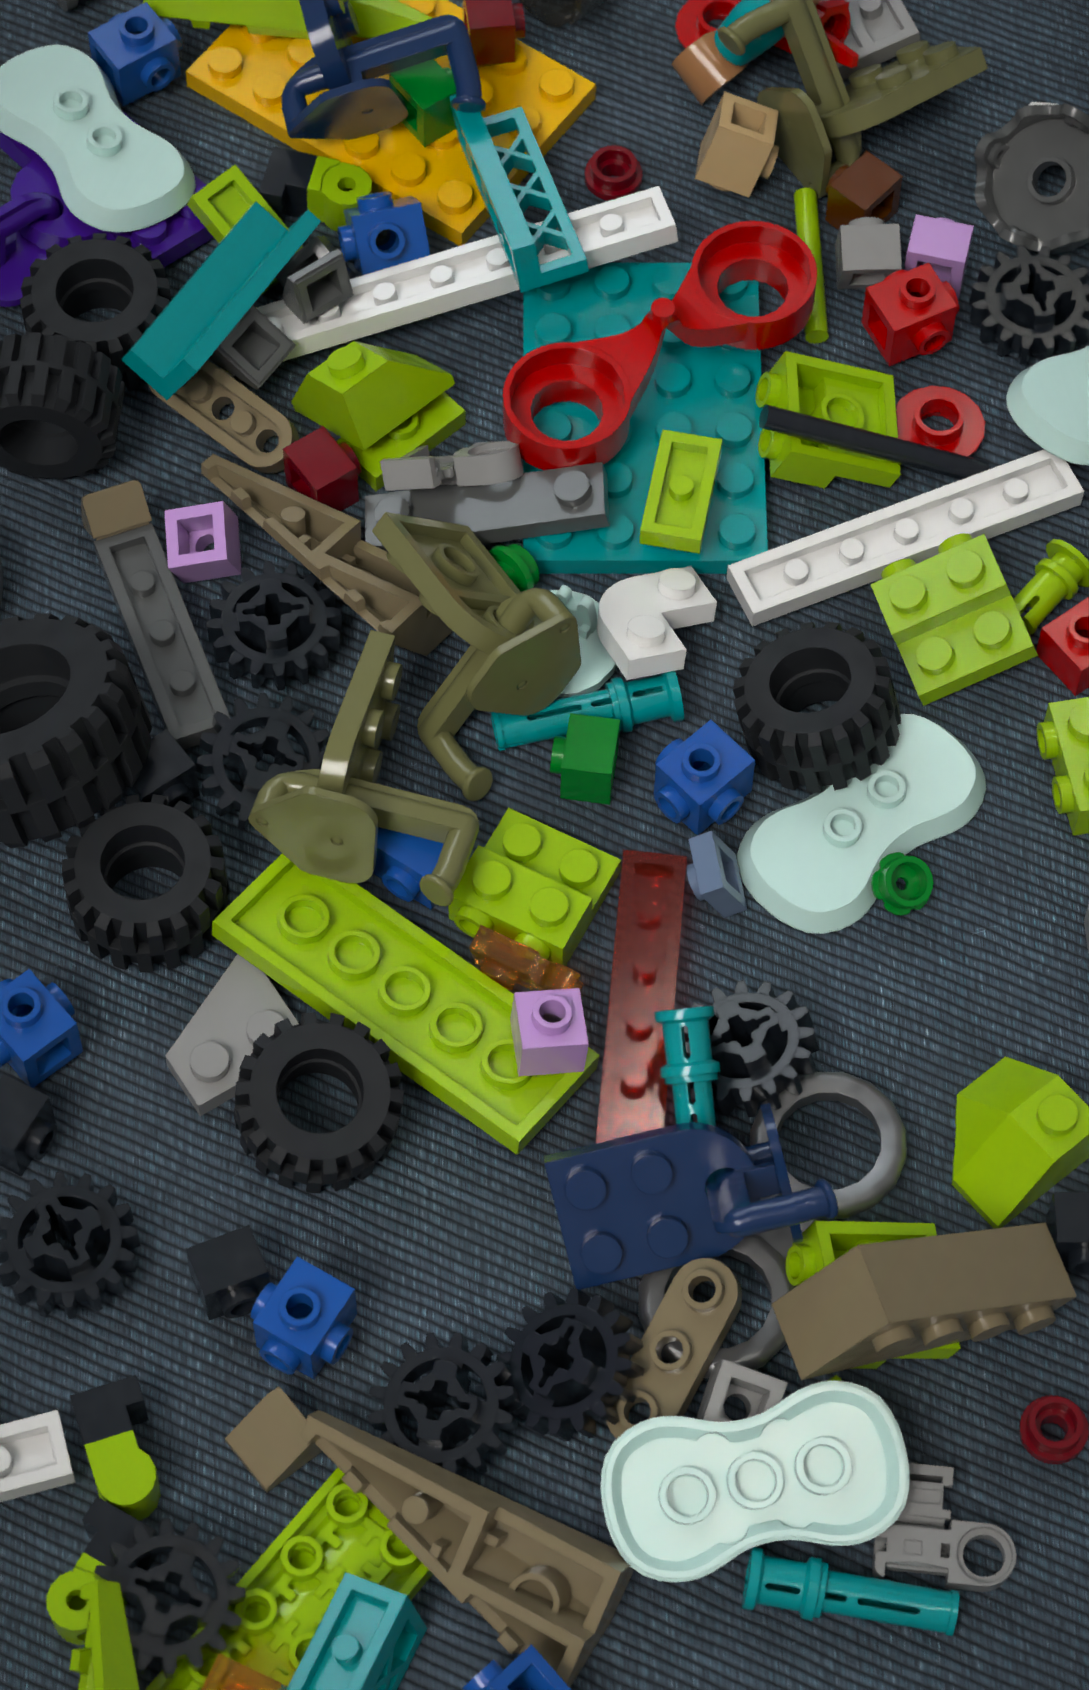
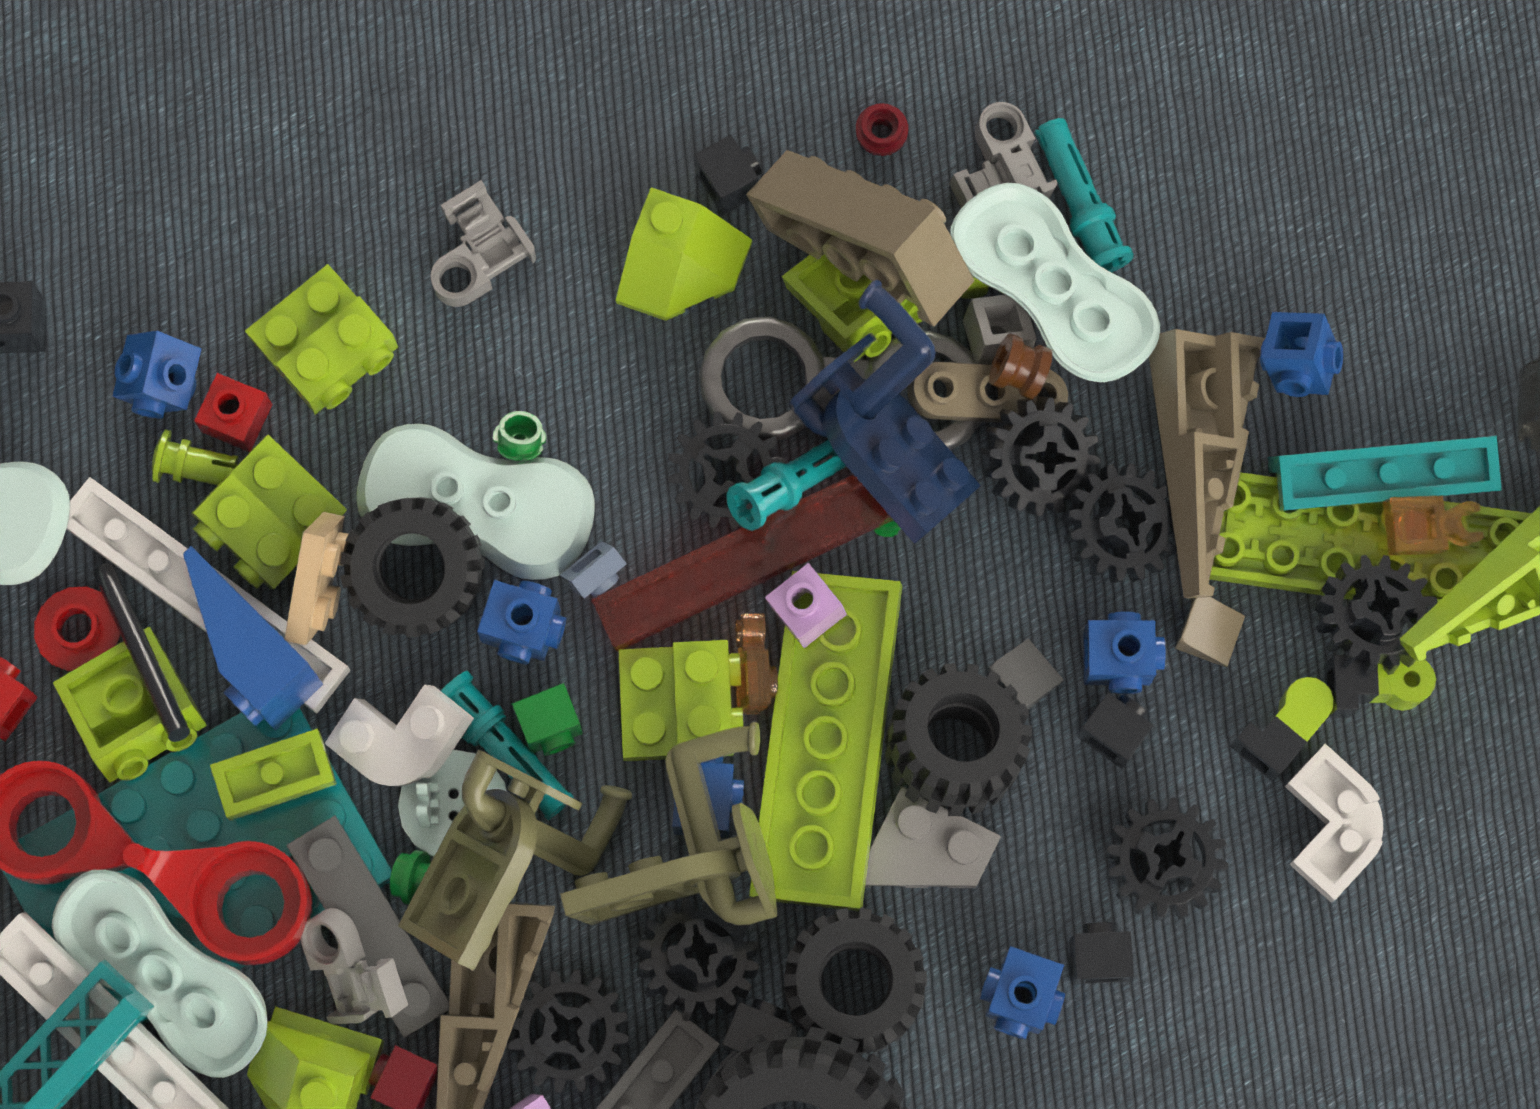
camera: 120 degrees left, 15 degrees up
(346, 1223) = (1027, 672): none -> dark grey slope
(573, 308) = (202, 1006): none -> light aqua plate
(674, 1375) = (1020, 366): none -> reddish brown wheel
(823, 508) = (262, 668): none -> blue slope
(856, 596) = (313, 593): none -> tan plate

